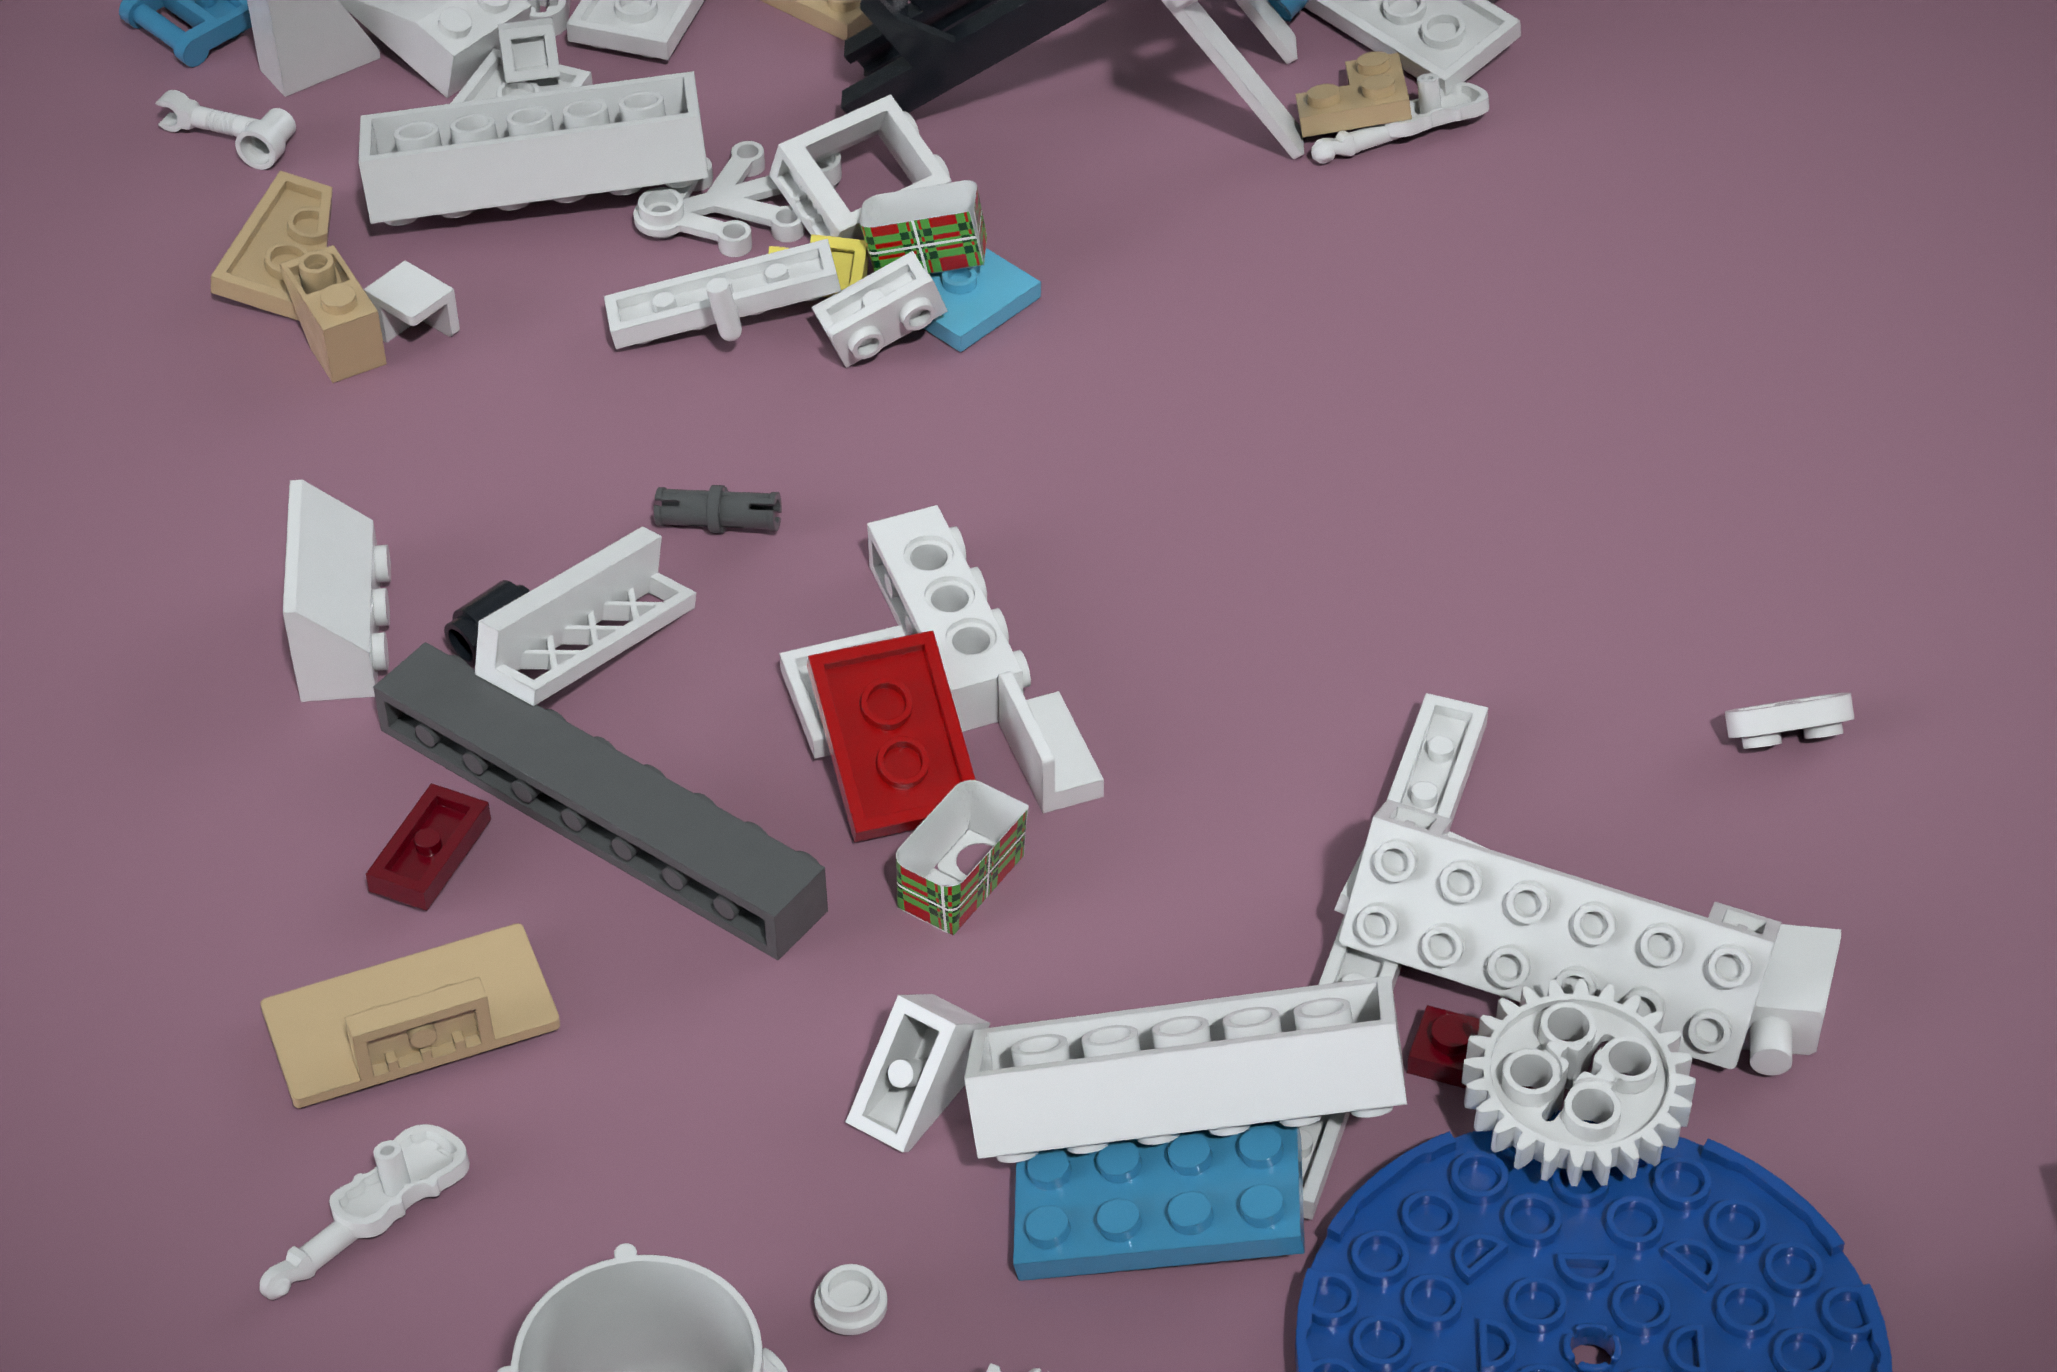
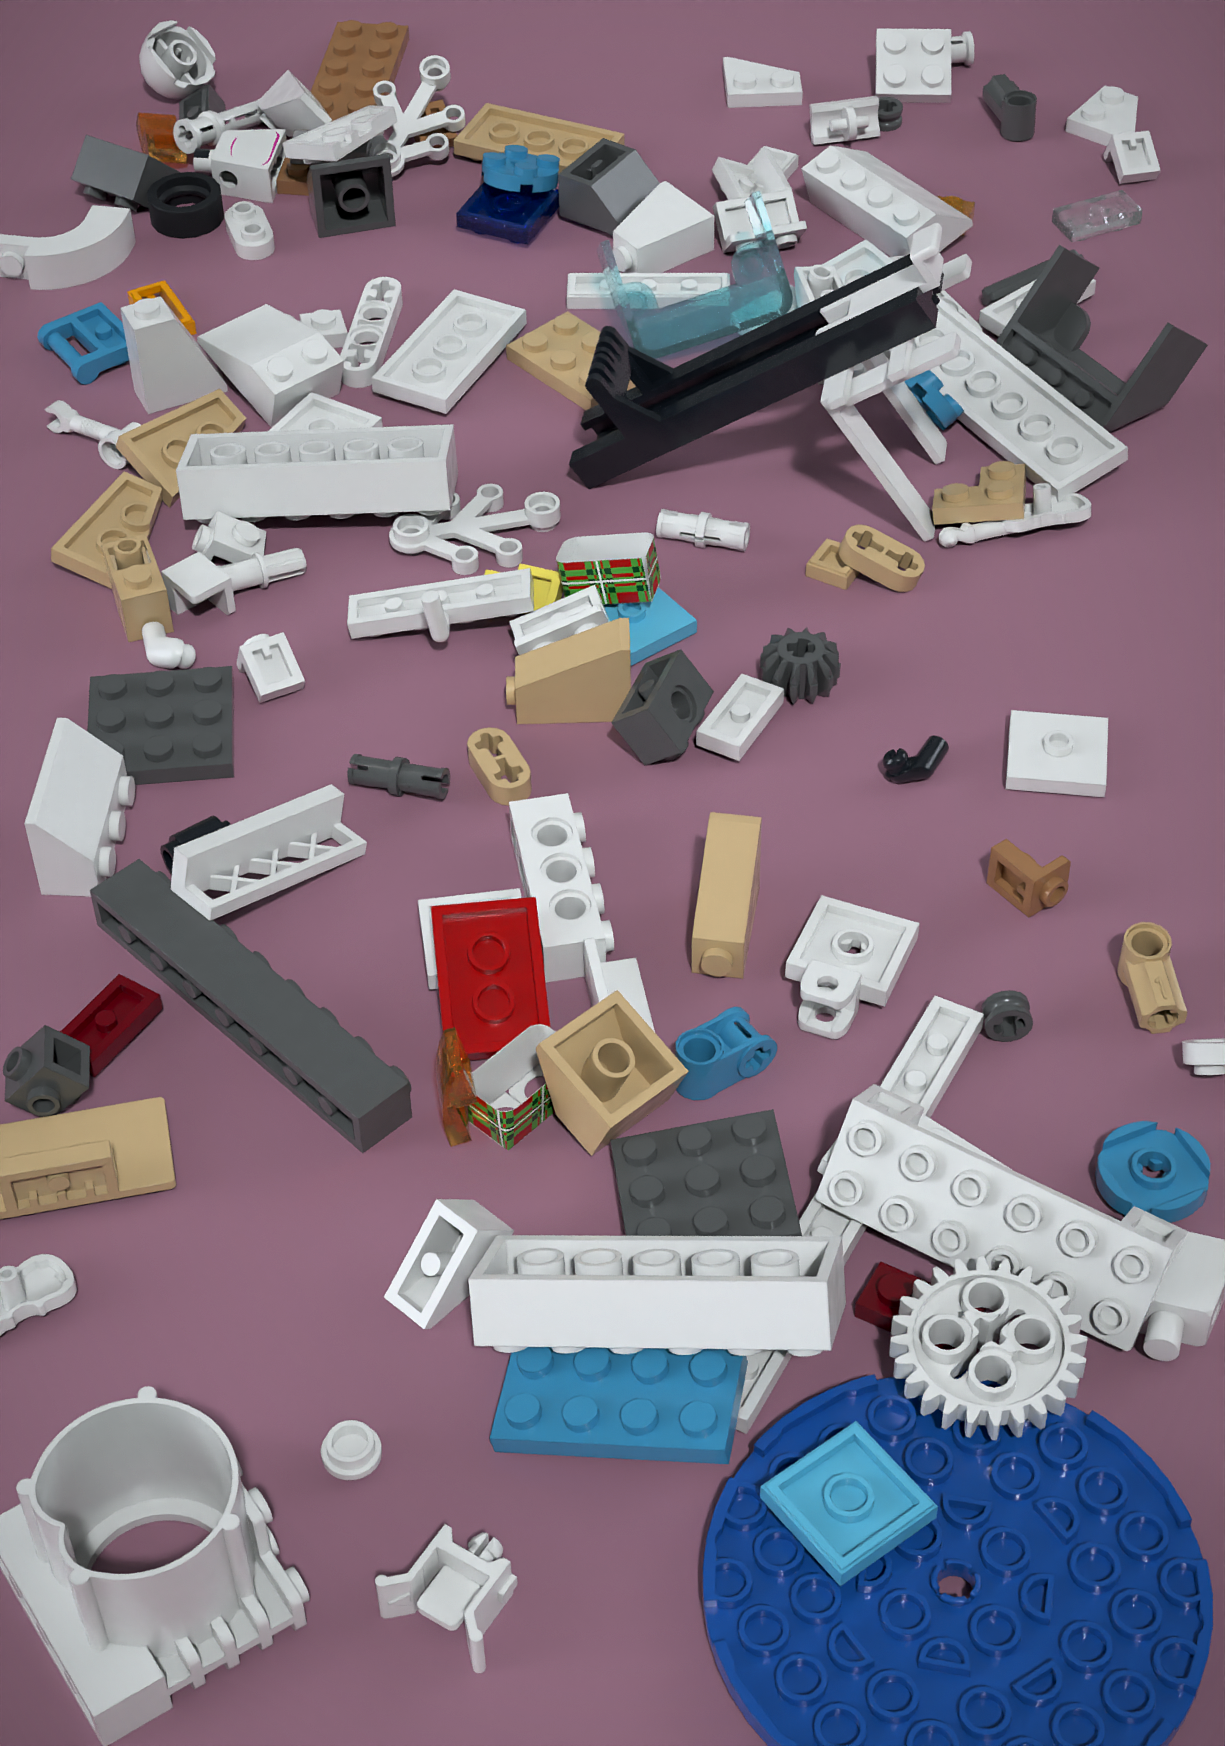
camera: 10 degrees right, 0 degrees up
(324, 131) = (160, 443): none -> tan wing
(374, 910) = (47, 1072): none -> dark grey brick
(385, 388) = (166, 651): none -> white arm
(413, 473) = (167, 722): none -> dark grey plate
(437, 243) = (229, 539): none -> white bracket
(490, 273) = (265, 569): none -> white axle
(525, 392) = (270, 666): none -> white bracket
(529, 50) = (333, 395): white tile -> none
(812, 193) = (525, 527): white window -> none
(827, 489) = (490, 768): none -> tan beam
(880, 865) = (454, 1086): none -> clear orange slope
(913, 366) = (574, 677): none -> tan slope
(1023, 171) = (703, 529): none -> white pin
(1027, 391) = (663, 708): none -> dark grey brick
(1062, 826) = (607, 1072): none -> tan slope
(1119, 392) = (740, 717): none -> white plate
(1157, 603) = (727, 895): none -> tan slope
(1179, 323) = (801, 664): none -> dark grey gear
(1186, 793) = (720, 1053): none -> dark azure piece
(1193, 197) = (829, 567): none -> tan tile
(1203, 936) = (707, 1180): none -> dark grey plate
(1249, 184) = (881, 558): none -> tan beam
(1309, 688) = (837, 979): none -> white plate
(1351, 427) = (921, 766): none -> black arm
(1454, 1275) = (848, 1502): none -> medium azure plate
(1503, 548) = (1024, 881): none -> medium nougat bracket
(1507, 395) = (1057, 753): none -> white plate
(1515, 707) = (1007, 1016): none -> dark grey bush
(1672, 643) = (1151, 978): none -> tan piece
(1697, 836) = (1139, 1145): none -> dark azure plate

